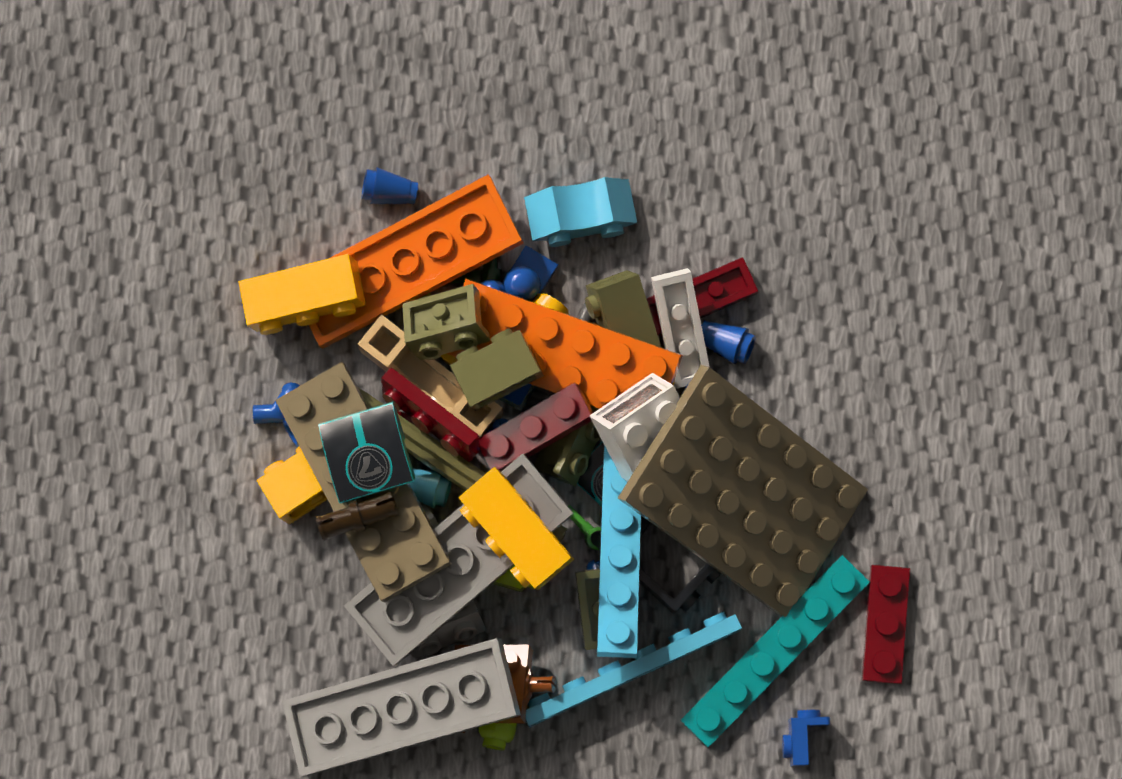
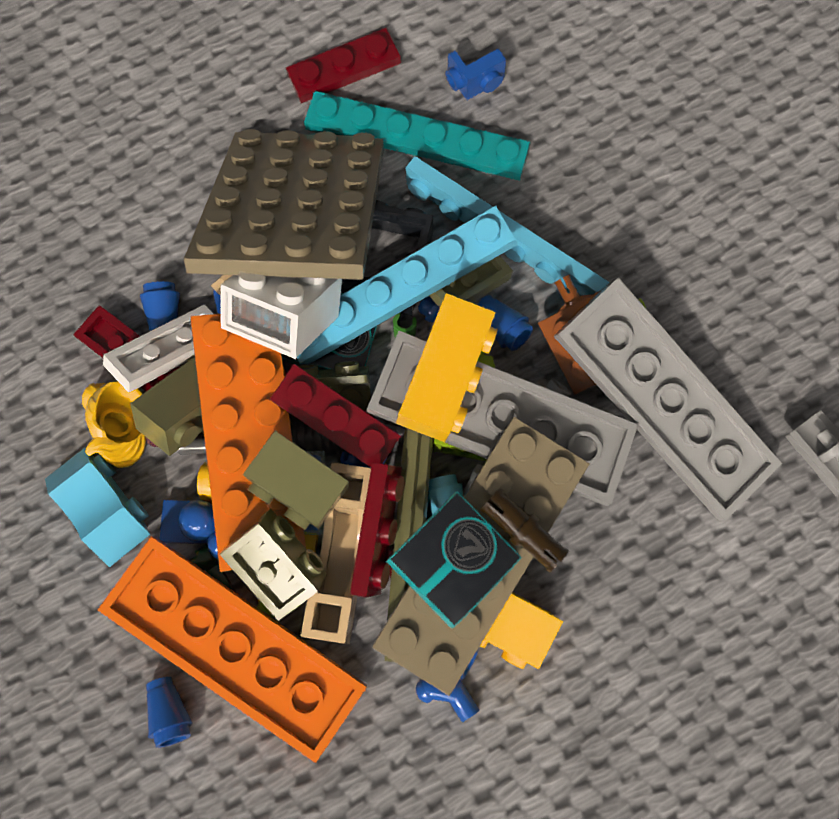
camera: 115 degrees left, 5 degrees down
(302, 294) = (323, 736): yellow brick -> none
(548, 623) = (511, 325): none -> blue cone
(644, 253) = (112, 424): none -> yellow hair

